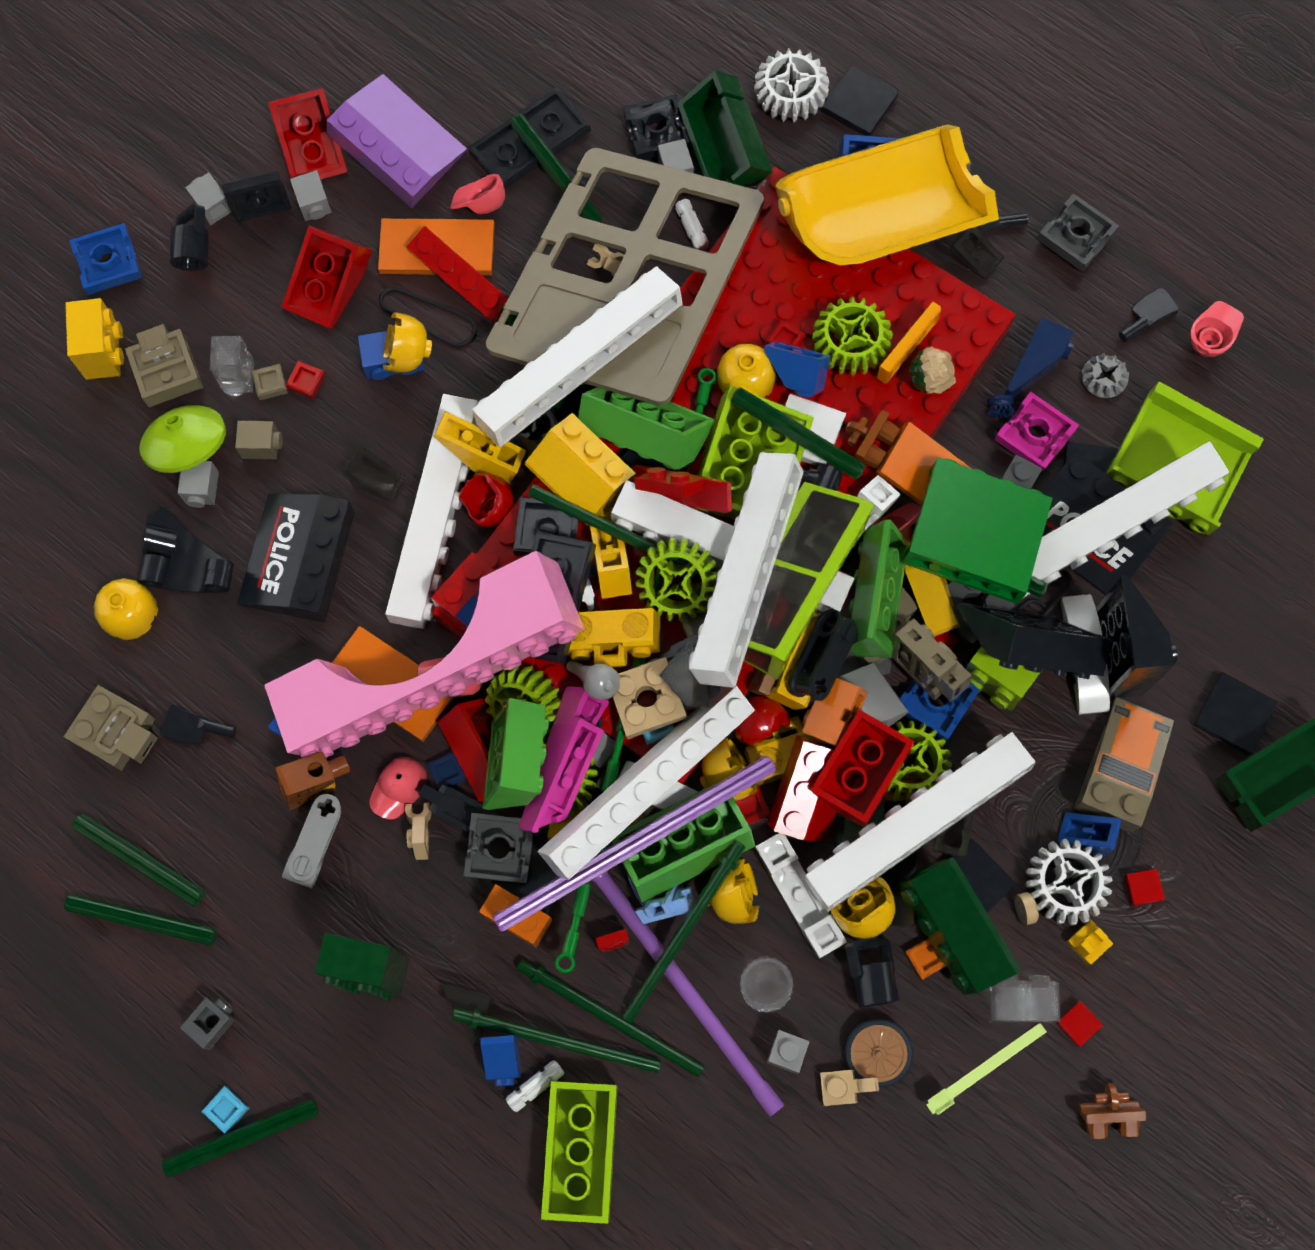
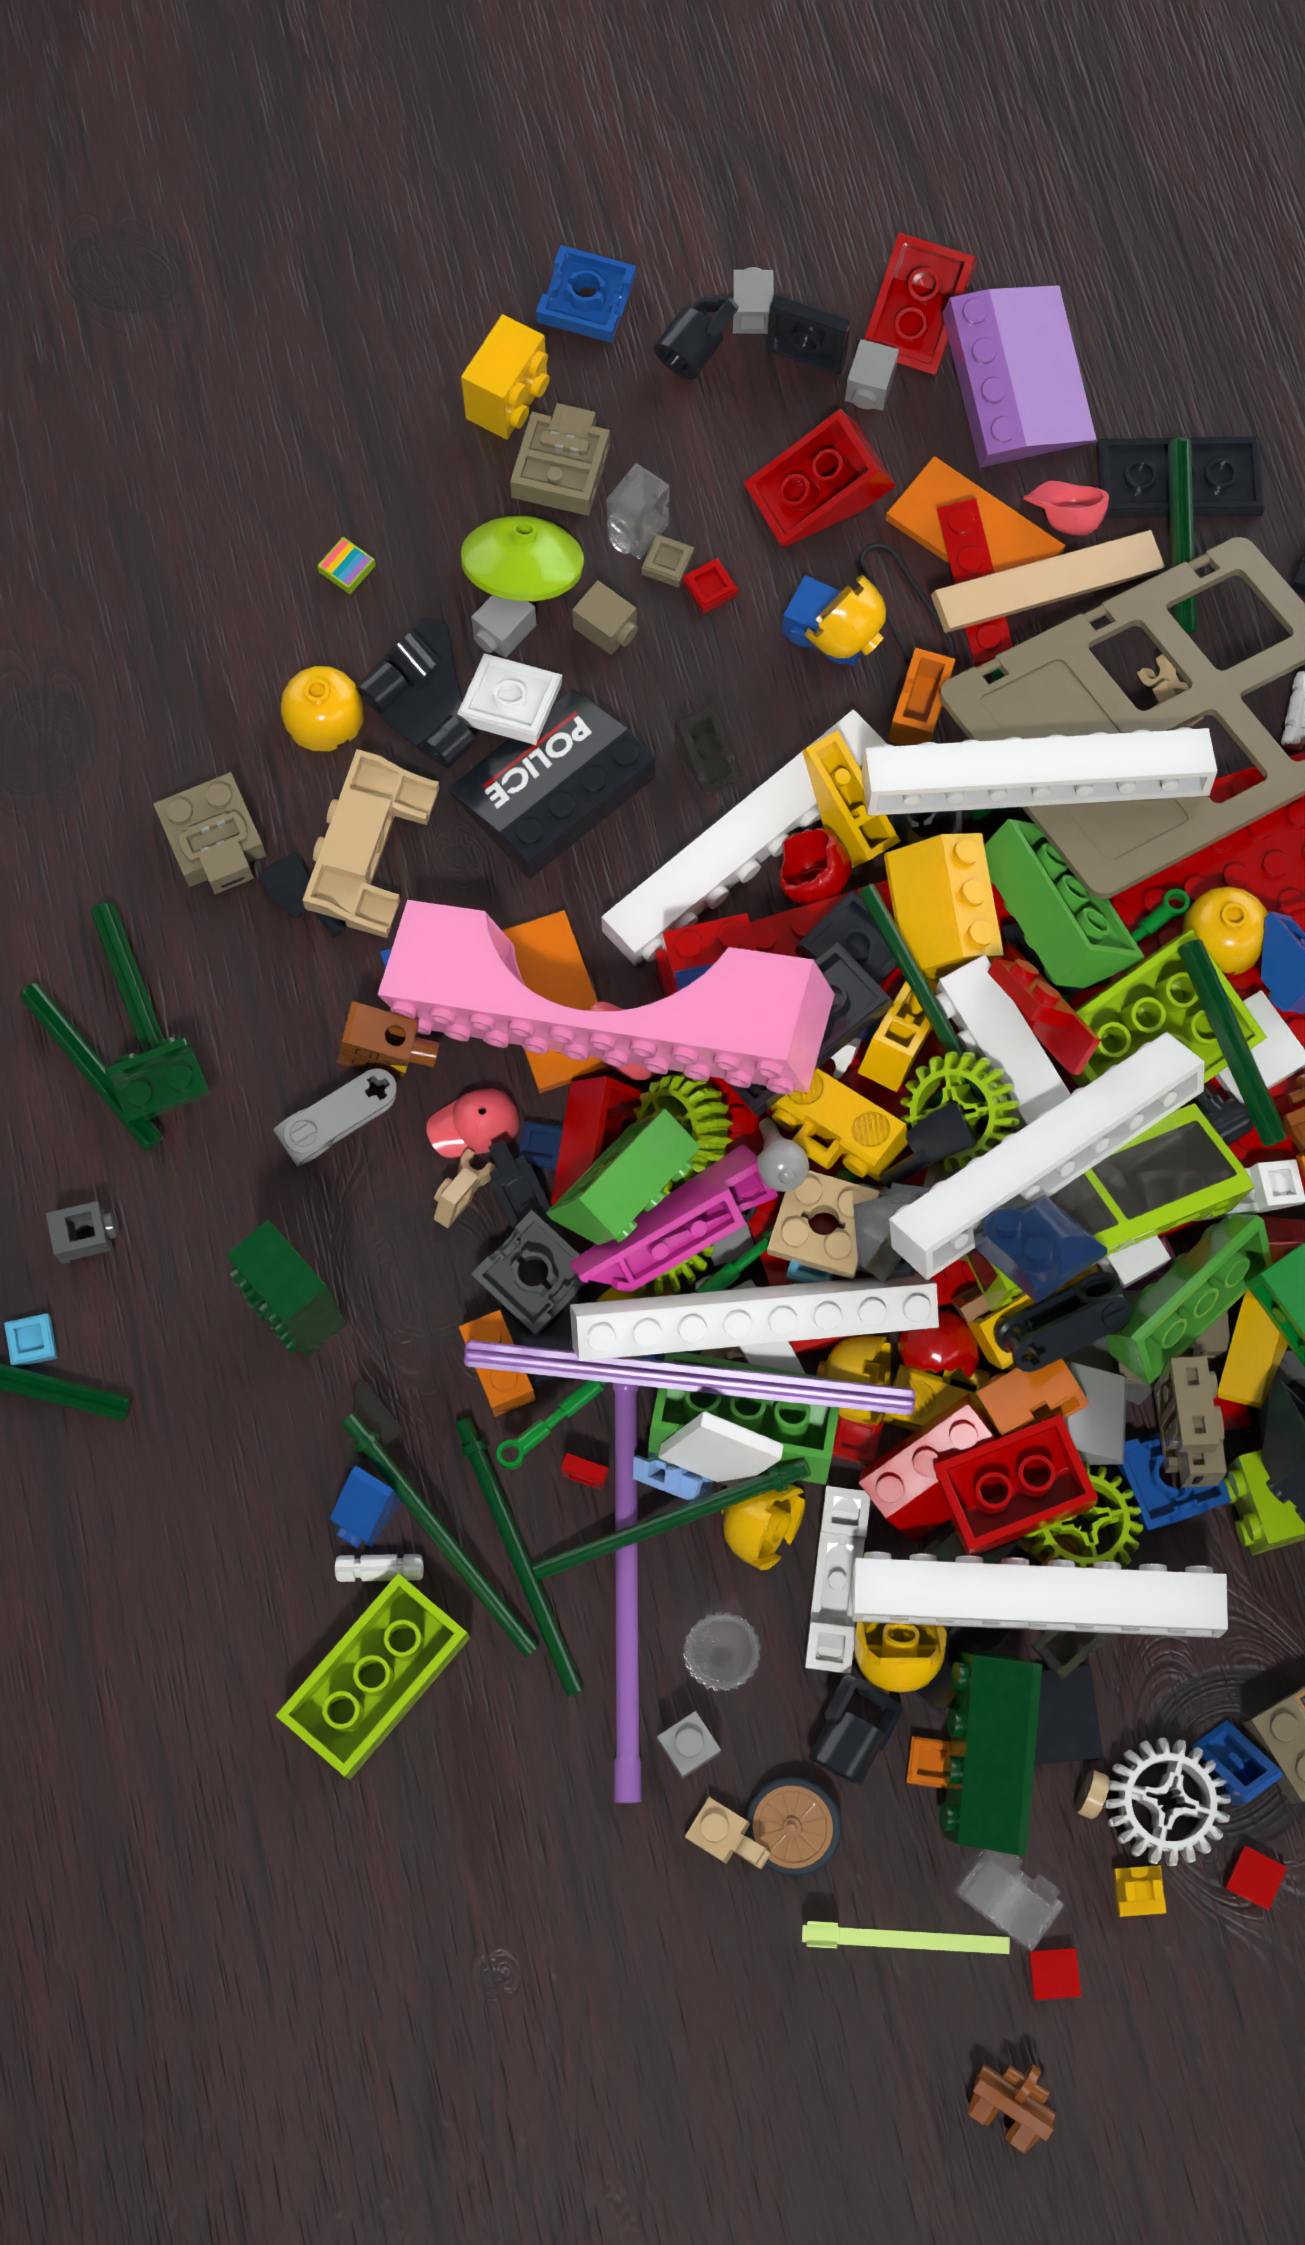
camera: 35 degrees right, 0 degrees up
(77, 514) = (346, 565): none -> tile
(189, 898) = (157, 1080): none -> dark green bracket
(204, 672) = (356, 838): none -> tan bracket
(235, 525) = (509, 698): none -> white tile
(477, 361) = (920, 698): none -> orange brick
(499, 247) = (1047, 581): none -> tan tile
(675, 606) = (932, 1140): none -> black piece
(685, 871) = (720, 1450): none -> white tile
(782, 623) = (1038, 1246): none -> dark blue slope

